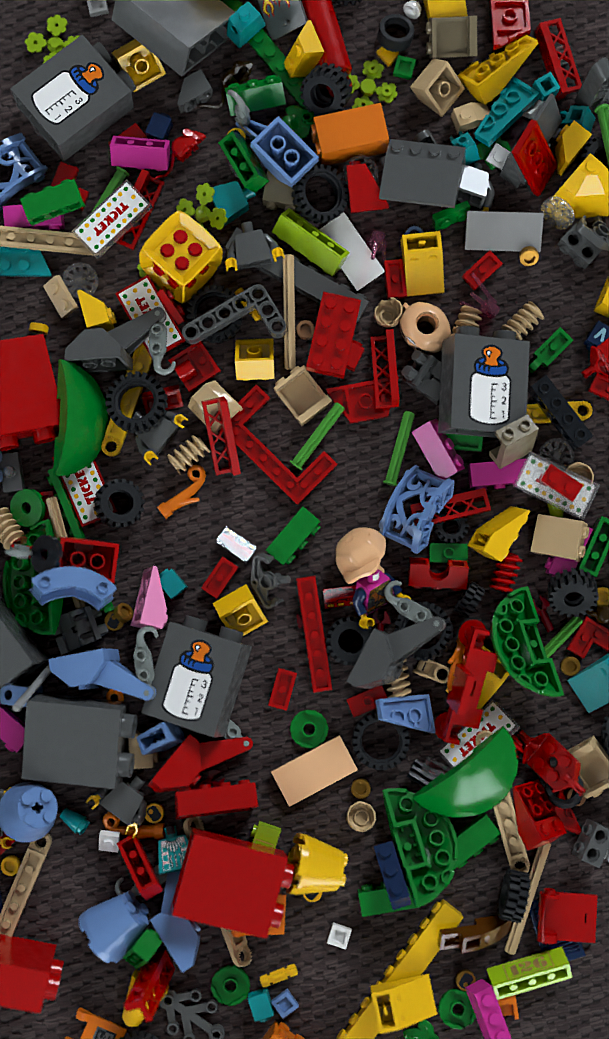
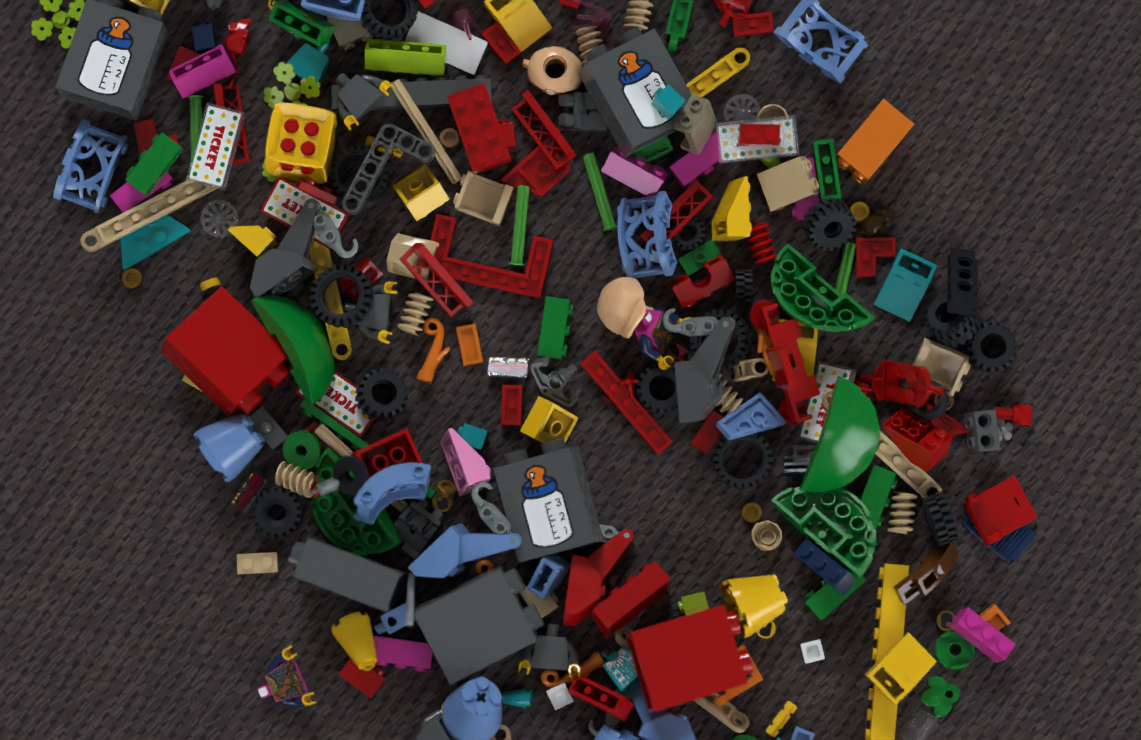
camera: 30 degrees left, 0 degrees up
(60, 296) = (211, 244): tan plate -> none
(154, 812) = (584, 647): tile -> none
(195, 366) = (371, 231): red plate -> none
(216, 506) = (469, 344): none -> orange tile
(282, 689) = (628, 468): red plate -> none
(309, 740) = (662, 493): green tile -> none
(314, 770) = (701, 521): light nougat tile -> none
(327, 619) = (630, 381): none -> red bar
(338, 596) = (627, 356): slope -> none
(388, 312) = (514, 77): tan hair -> none
(485, 868) = (902, 513): none -> tan piece
(503, 407) = (667, 101): none -> teal brick
(529, 973) = (996, 577): lime brick -> none
(535, 874) = (951, 496): tan axle -> none
(543, 614) = (816, 259): dark red bar -> none
(560, 413) = (720, 73): black brick -> none
(570, 666) = (868, 290): pearl gold tile -> none

